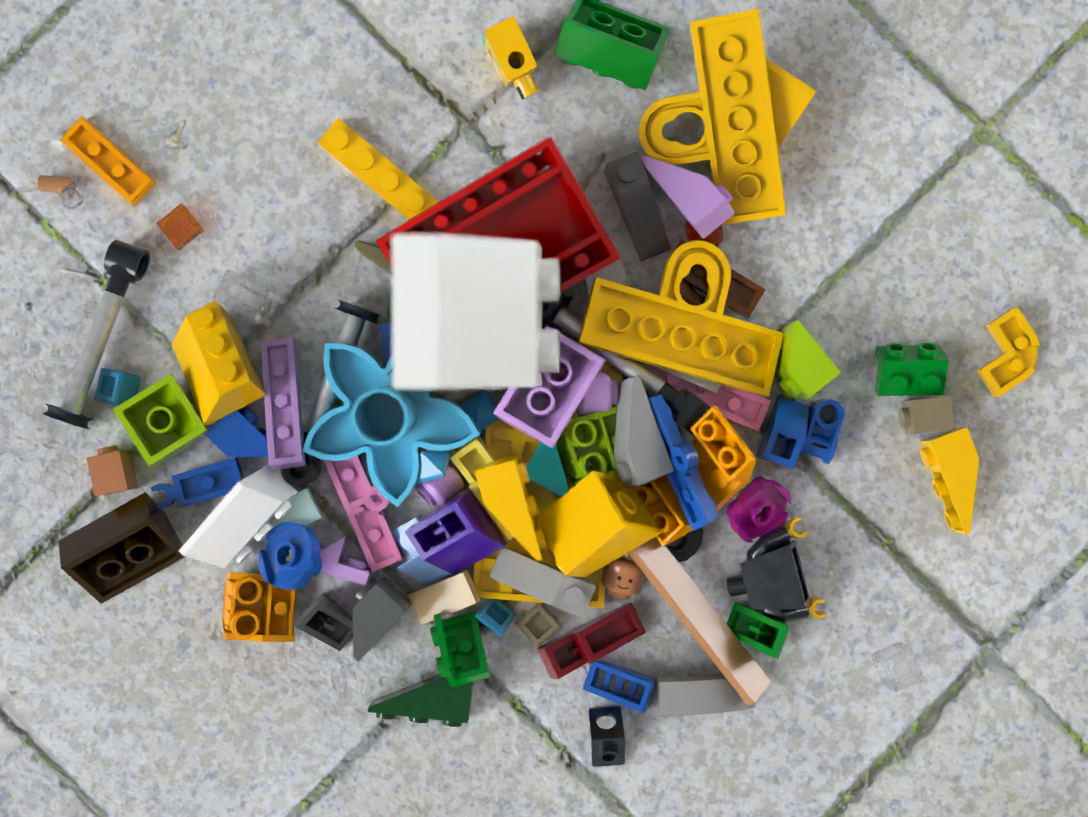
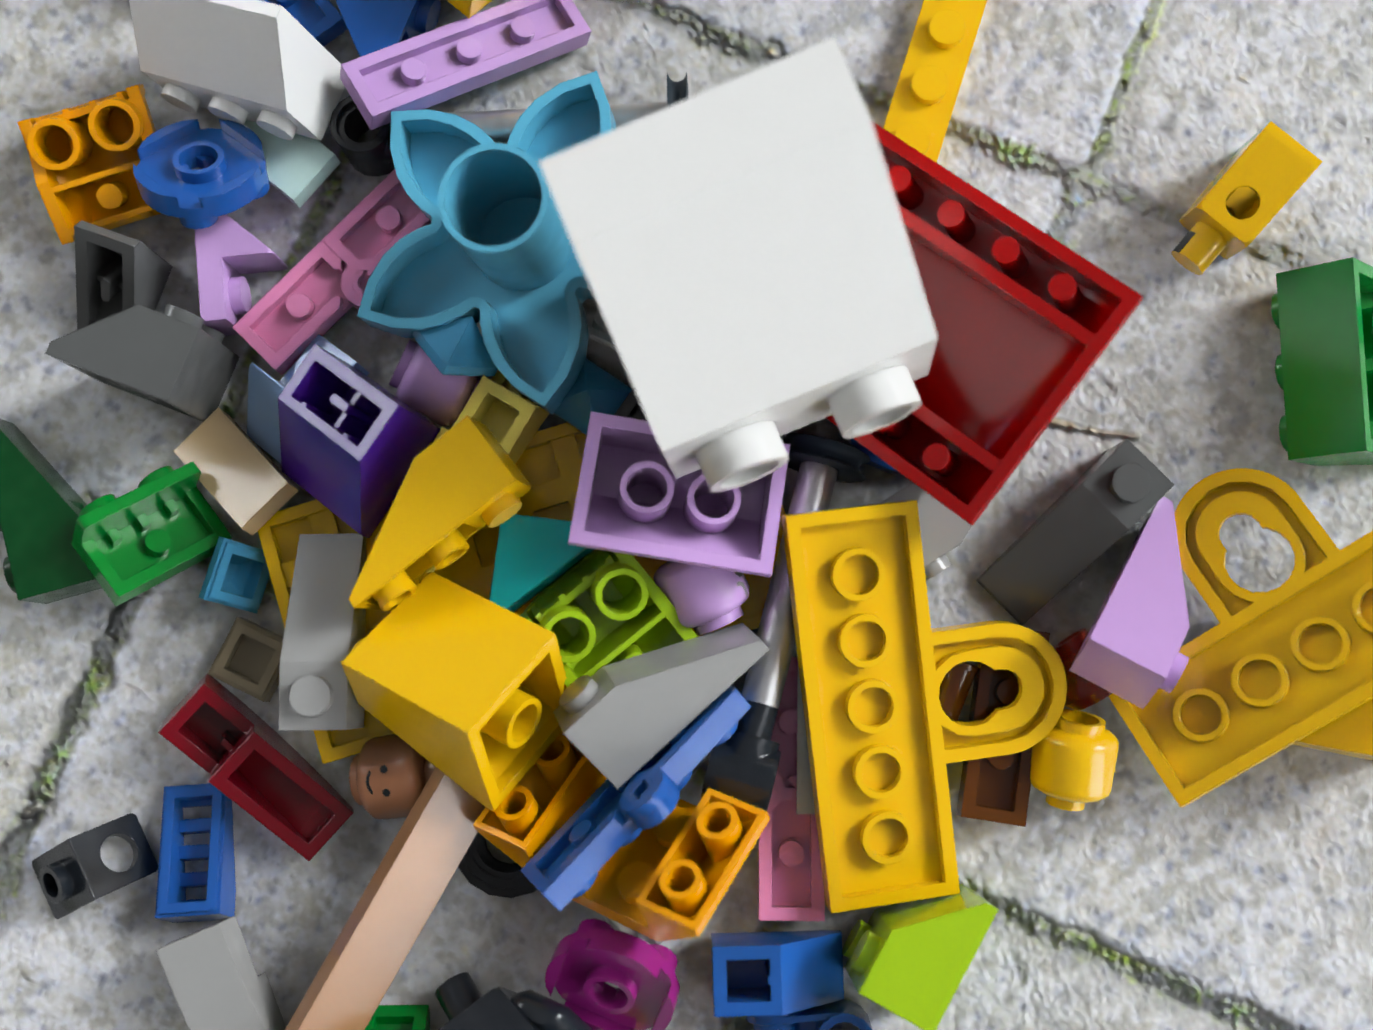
camera: 70 degrees right, 5 degrees down
(745, 253) = (1075, 761): none -> yellow head

